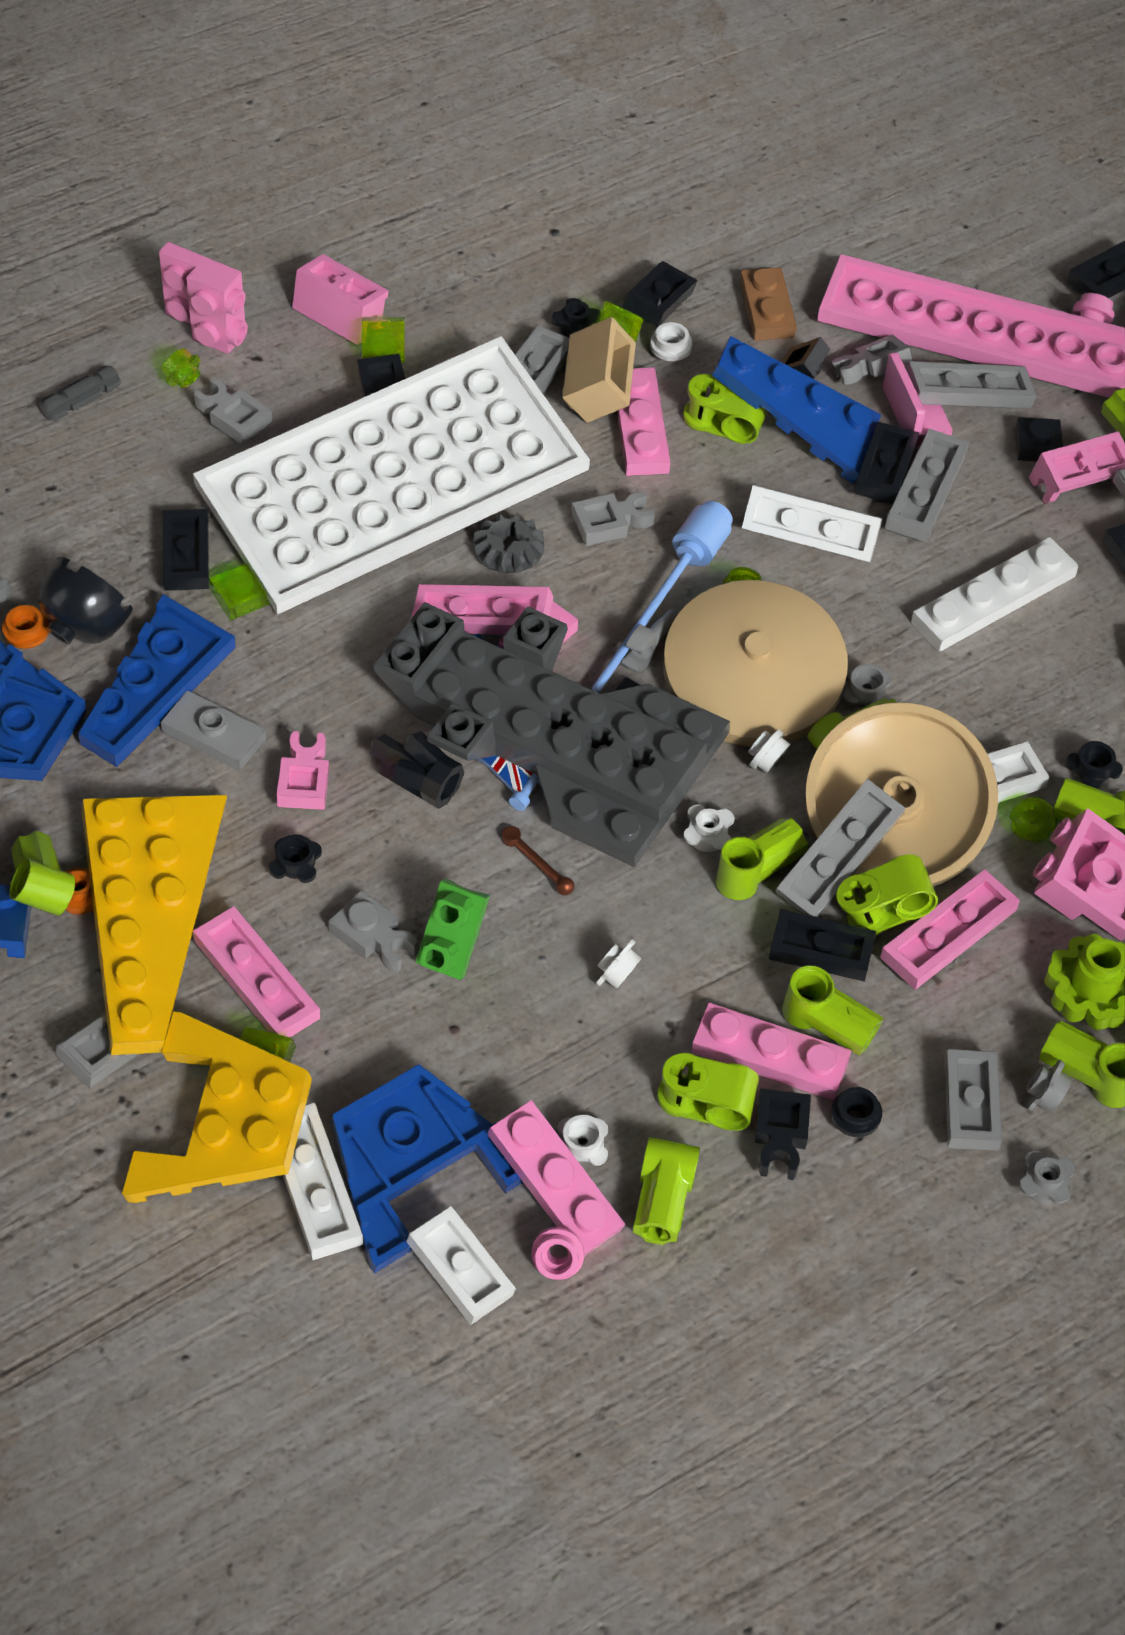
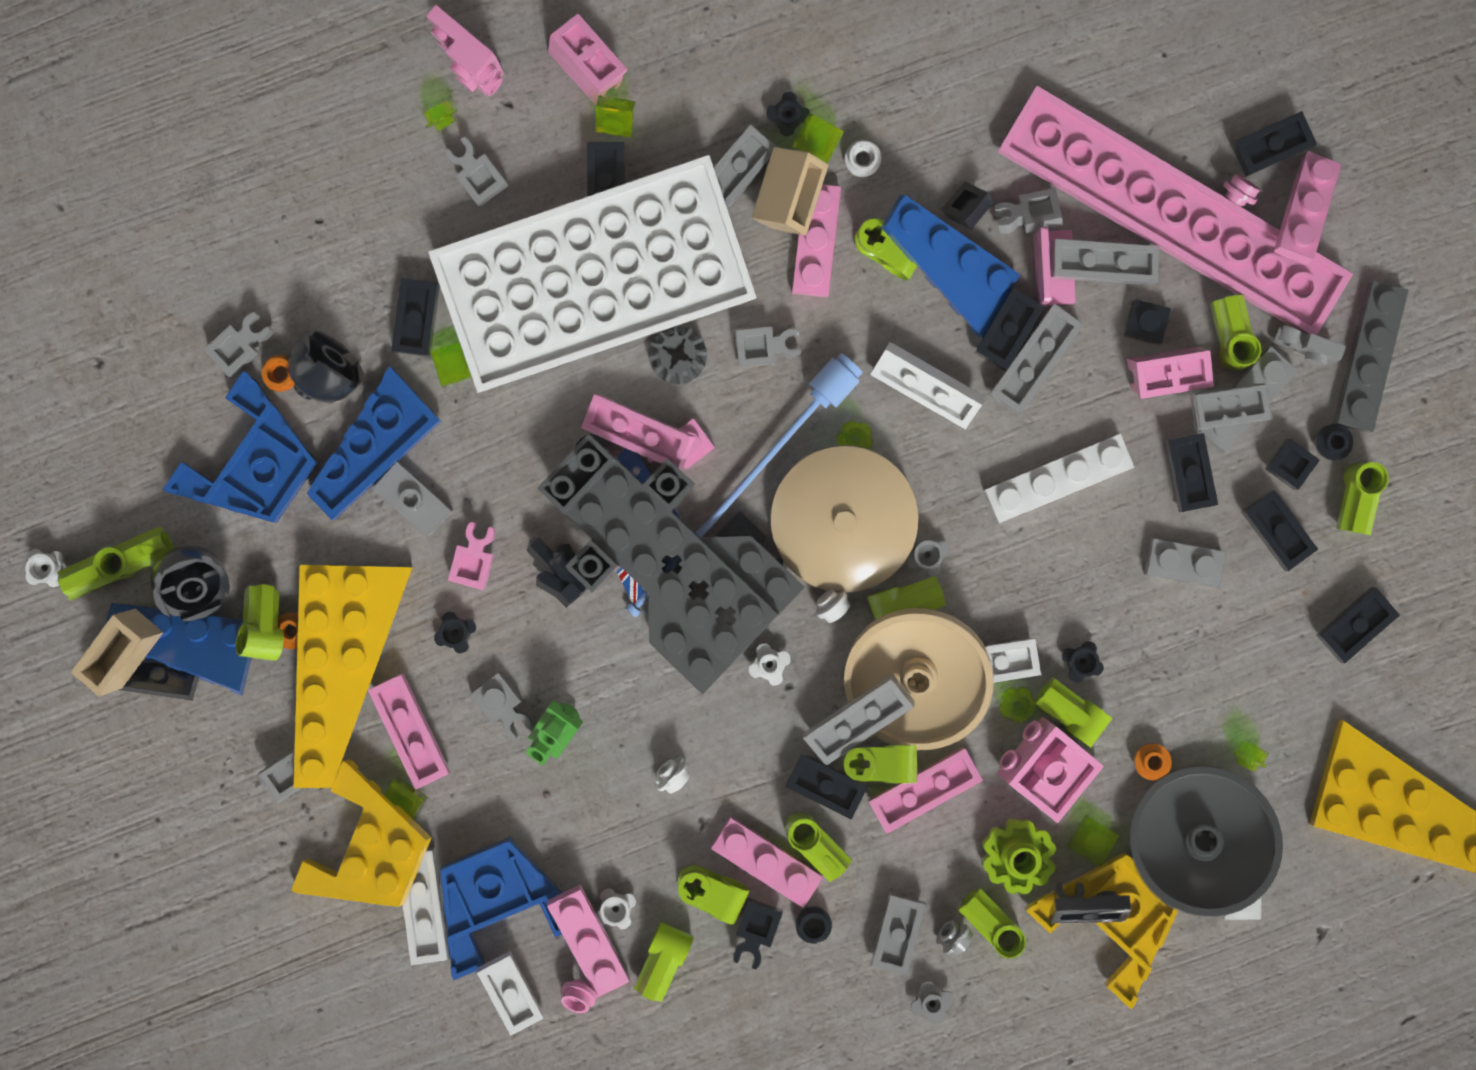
camera: 10 degrees right, 35 degrees up
(80, 393) = (353, 126): dark grey axle -> none
(512, 837) = (621, 638): copper hinge -> none
(645, 640) = (769, 477): light grey bar -> none
(659, 293) = (865, 105): black plate -> none
(753, 859) = (804, 700): lime piece -> none
(767, 304) = (959, 123): medium nougat plate -> none

